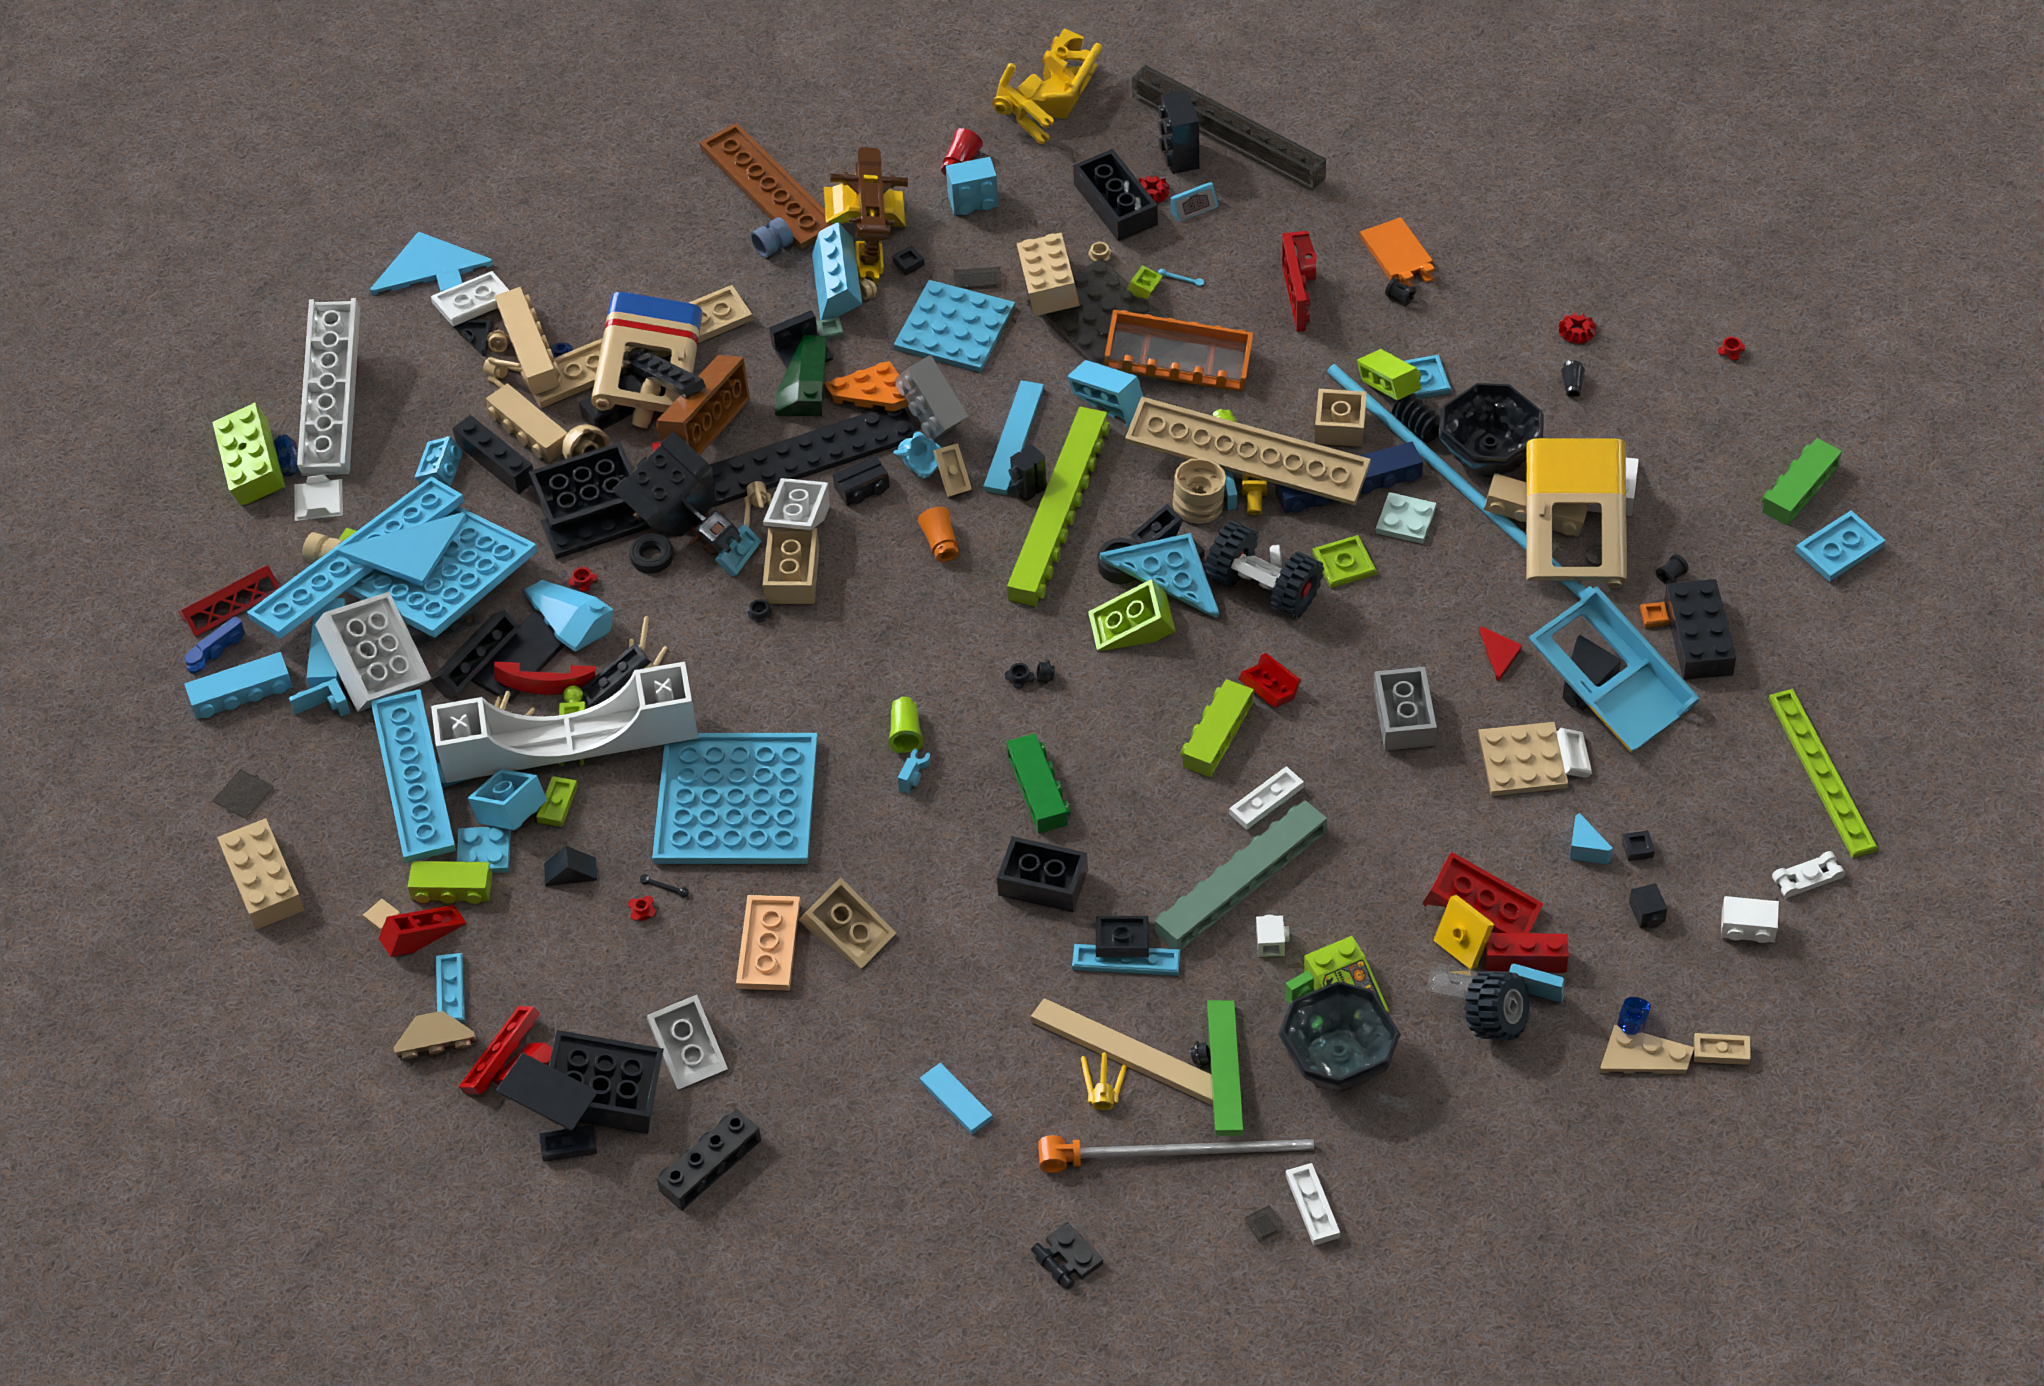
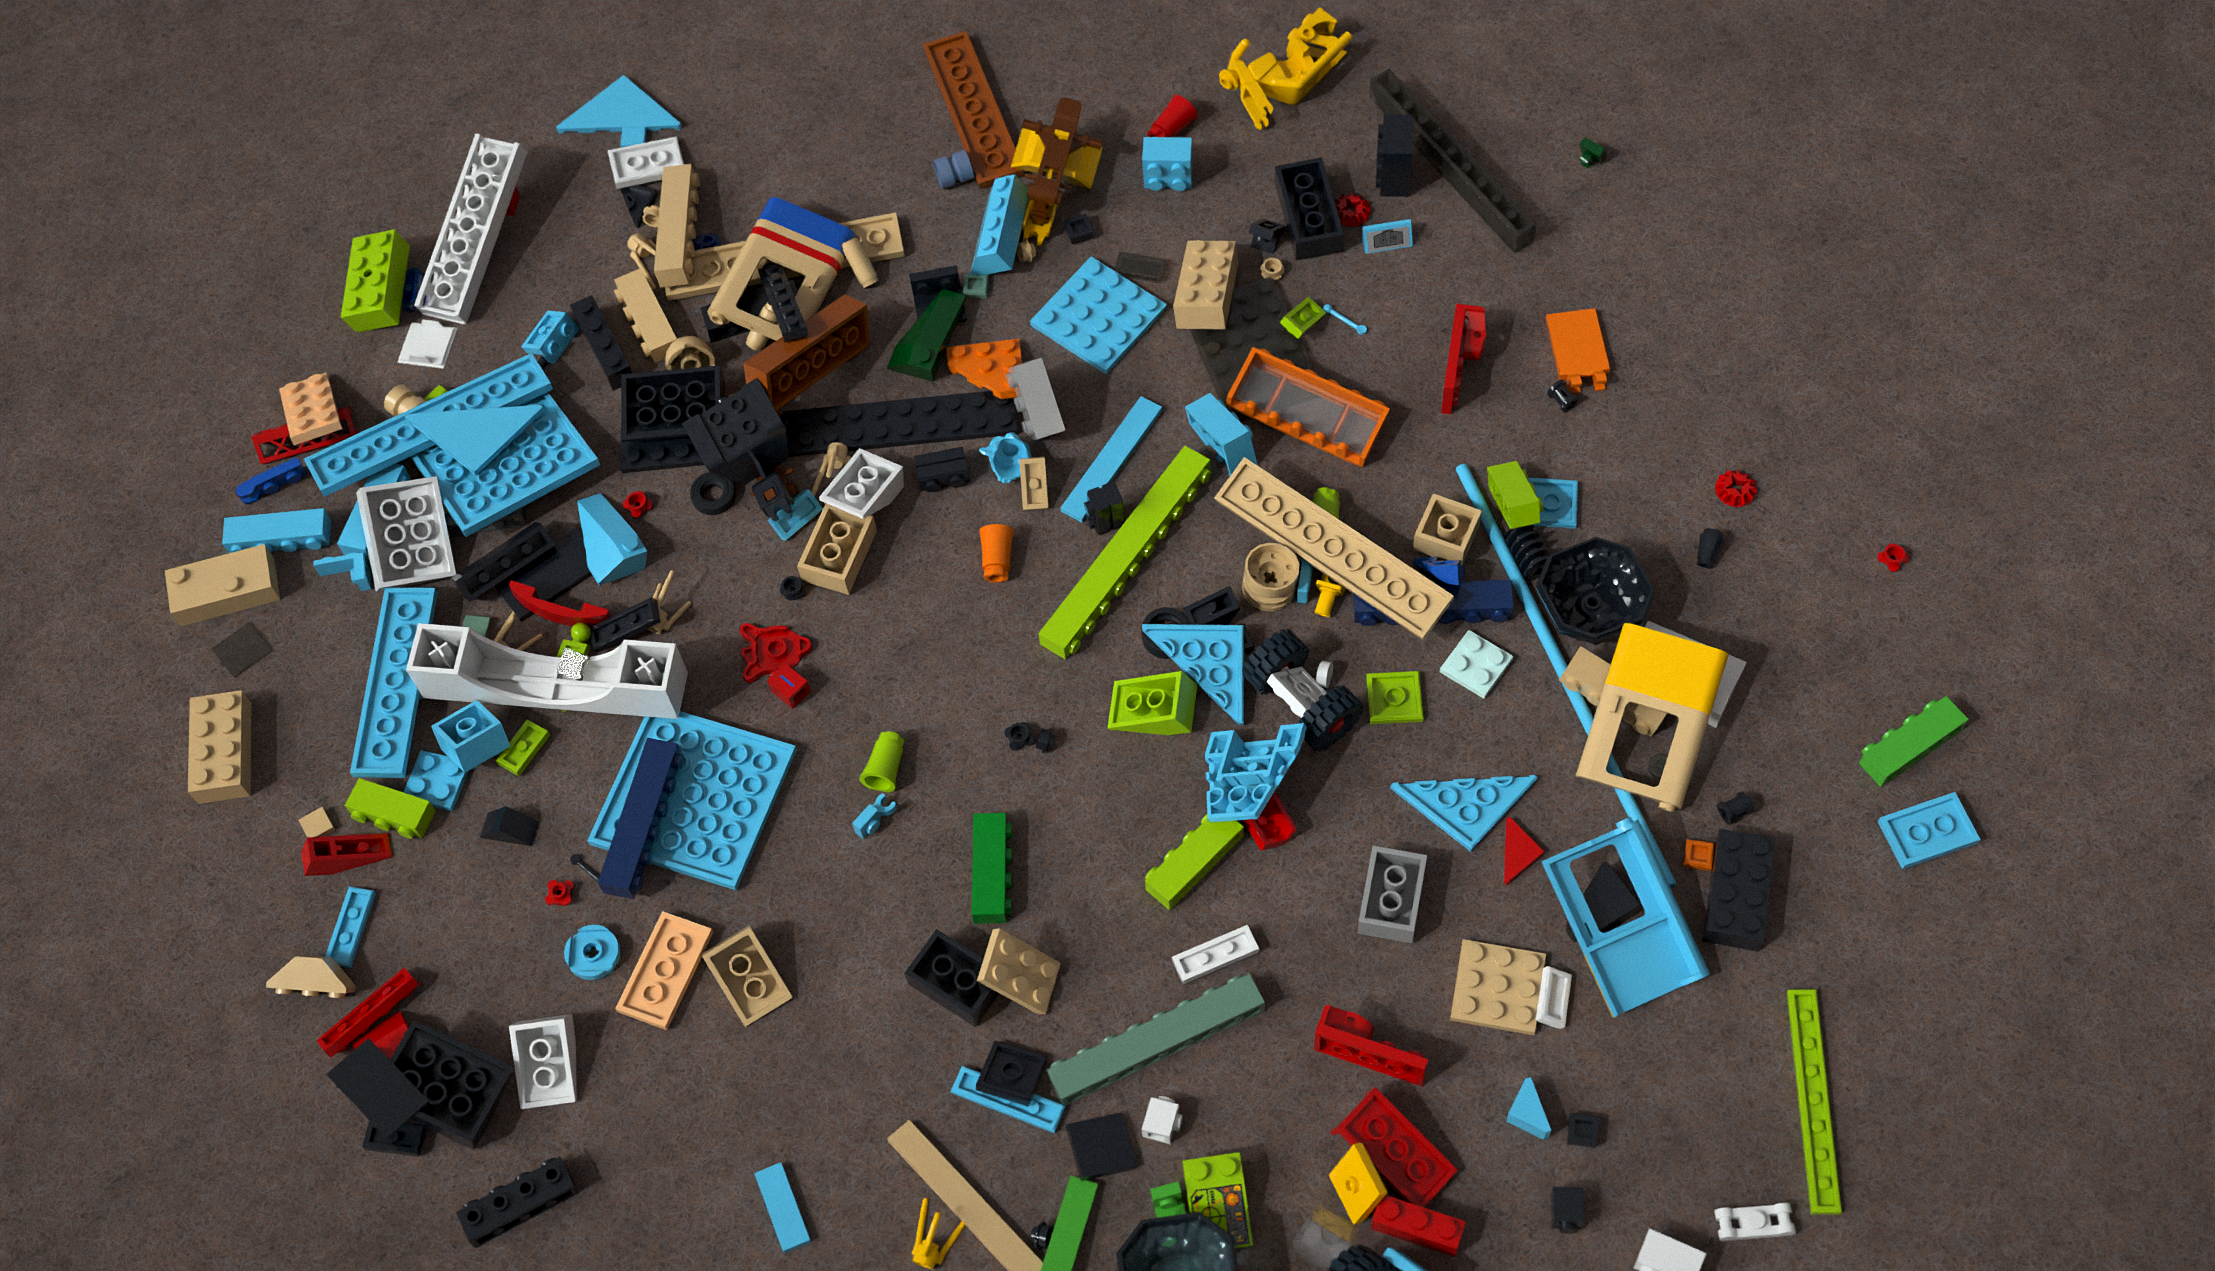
camera: 20 degrees right, 10 degrees up
(204, 741) = (222, 585): none -> tan brick
(230, 573) = (310, 408): none -> light nougat plate
(584, 714) = (573, 664): none -> clear smoke tile
(696, 959) = (582, 942): none -> medium azure plate
(698, 823) = (641, 818): none -> dark blue brick
(715, 331) = (859, 262): none -> tan piece
(760, 665) = (771, 649): none -> red tile
(789, 687) = (788, 685): none -> red brick
(1083, 227) = (1266, 235): none -> black slope
(1099, 850) = (1018, 971): none -> tan plate
(1225, 971) = (1101, 1146): none -> black tile
(1245, 647) = (1247, 772): none -> medium azure wedge
(1349, 95) = (1591, 152): none -> dark green tile
(1356, 445) = (1446, 571): none -> blue slope
(1431, 832) = (1353, 1043): none -> red plate
(1438, 629) = (1465, 806): none -> medium azure tile

